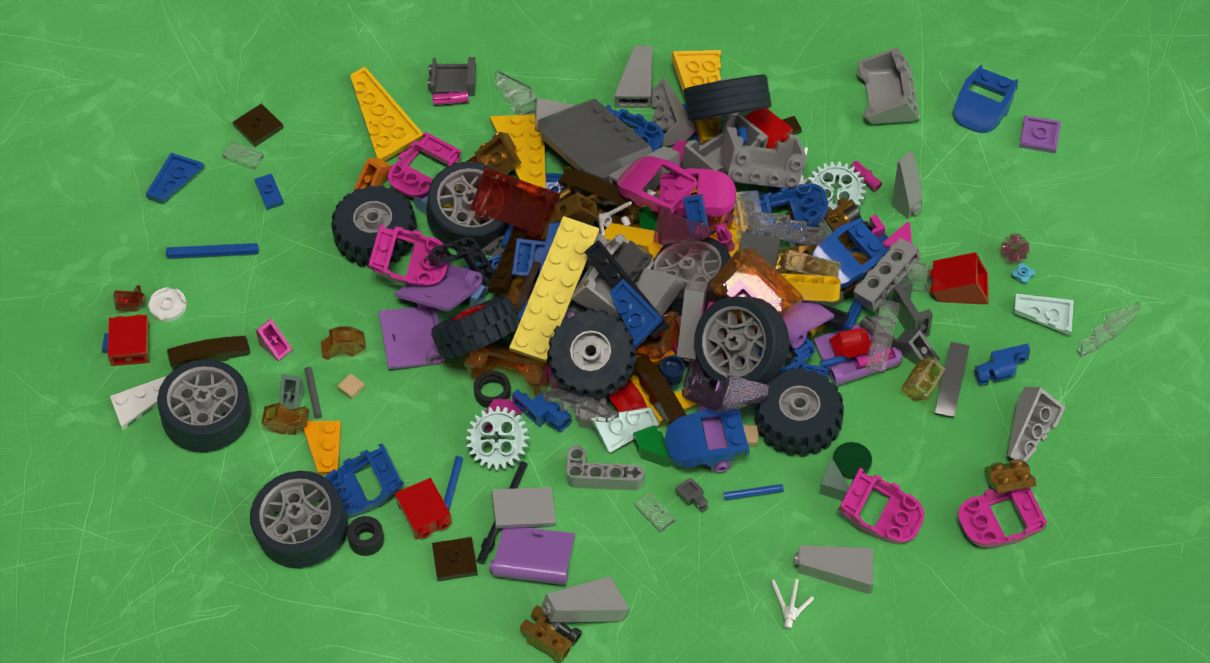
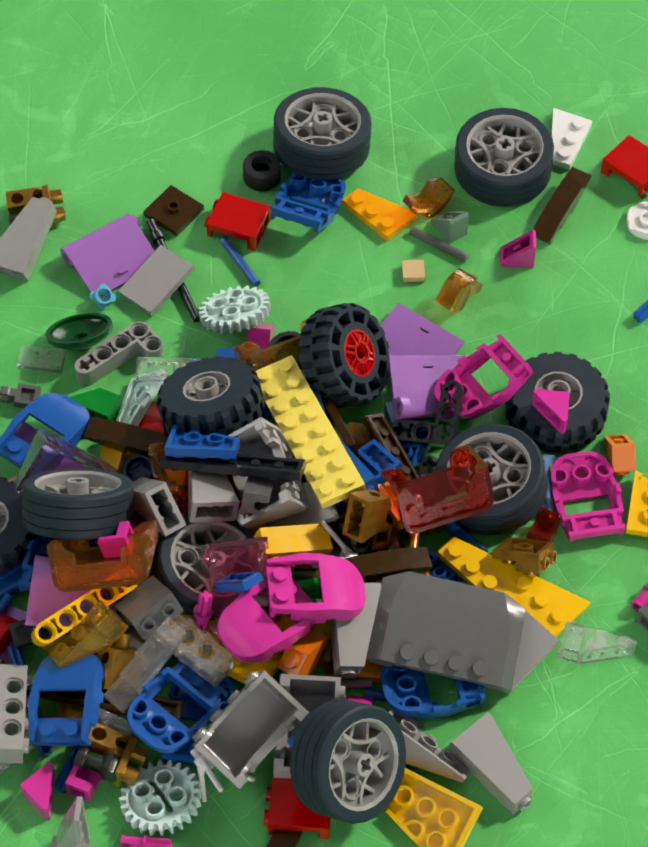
camera: 135 degrees right, 0 degrees up
(390, 199) = (553, 407): none -> dark pink slope
(570, 525) = (102, 290): none -> medium azure plate
(600, 502) = (79, 331): none -> dark green dish

